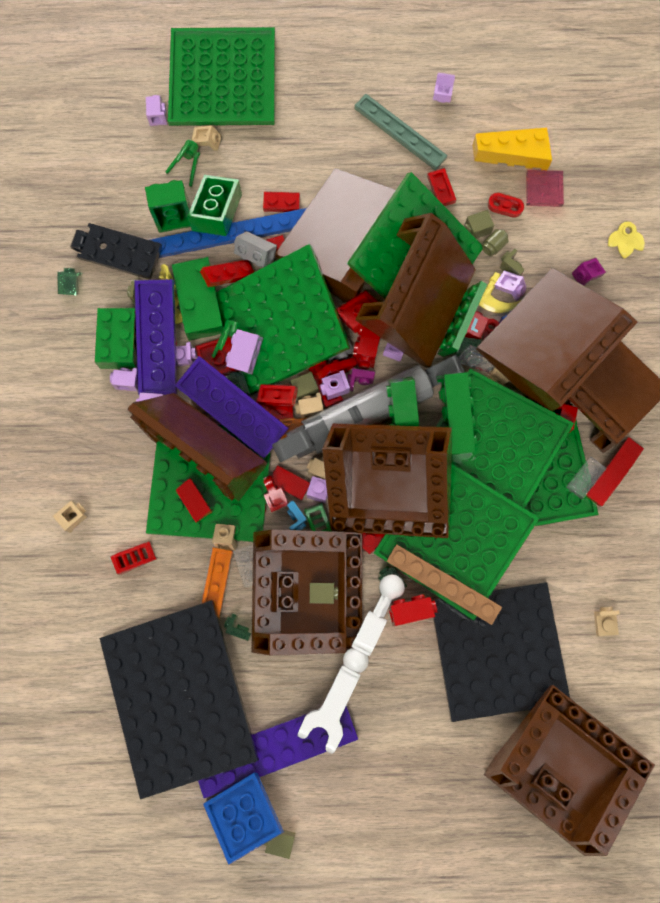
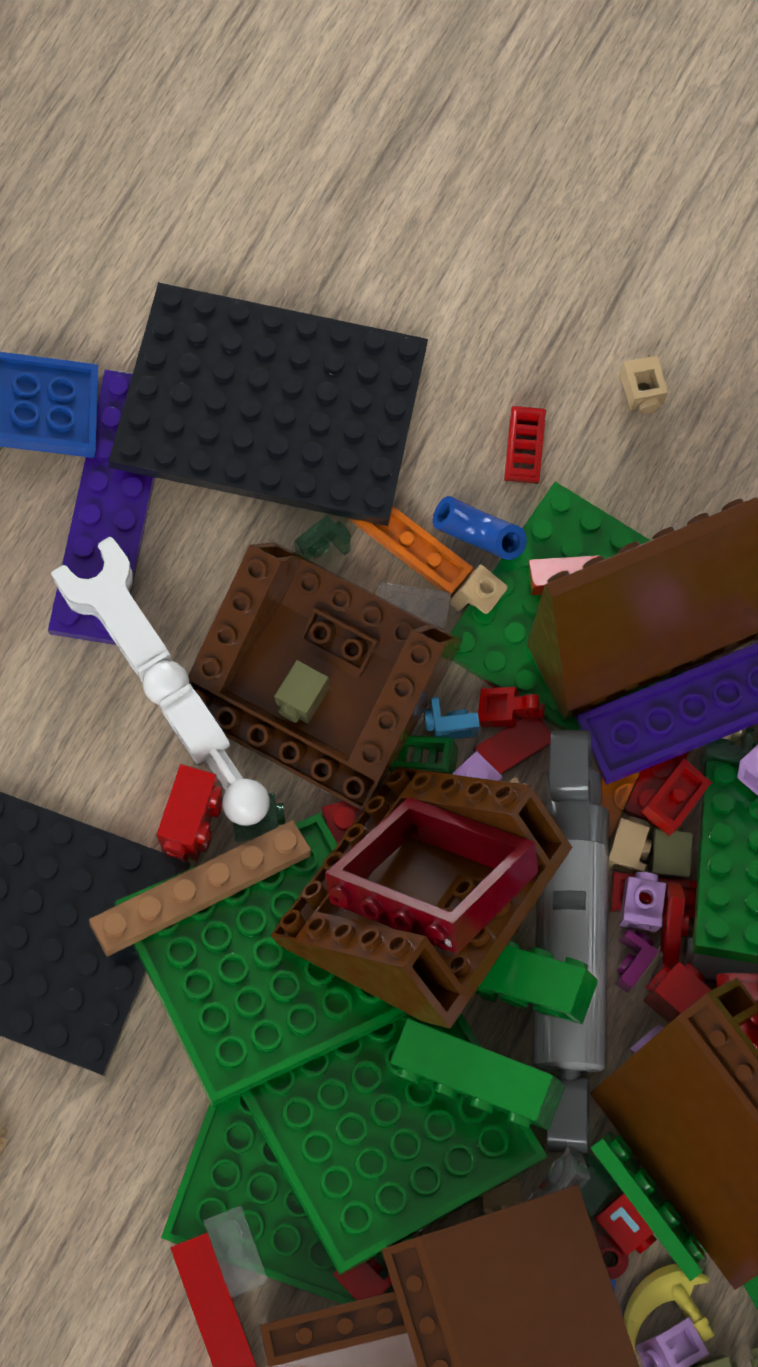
camera: 115 degrees right, 5 degrees down
(191, 555) = (479, 528): none -> blue cylinder
(355, 471) = (509, 854): none -> dark red window

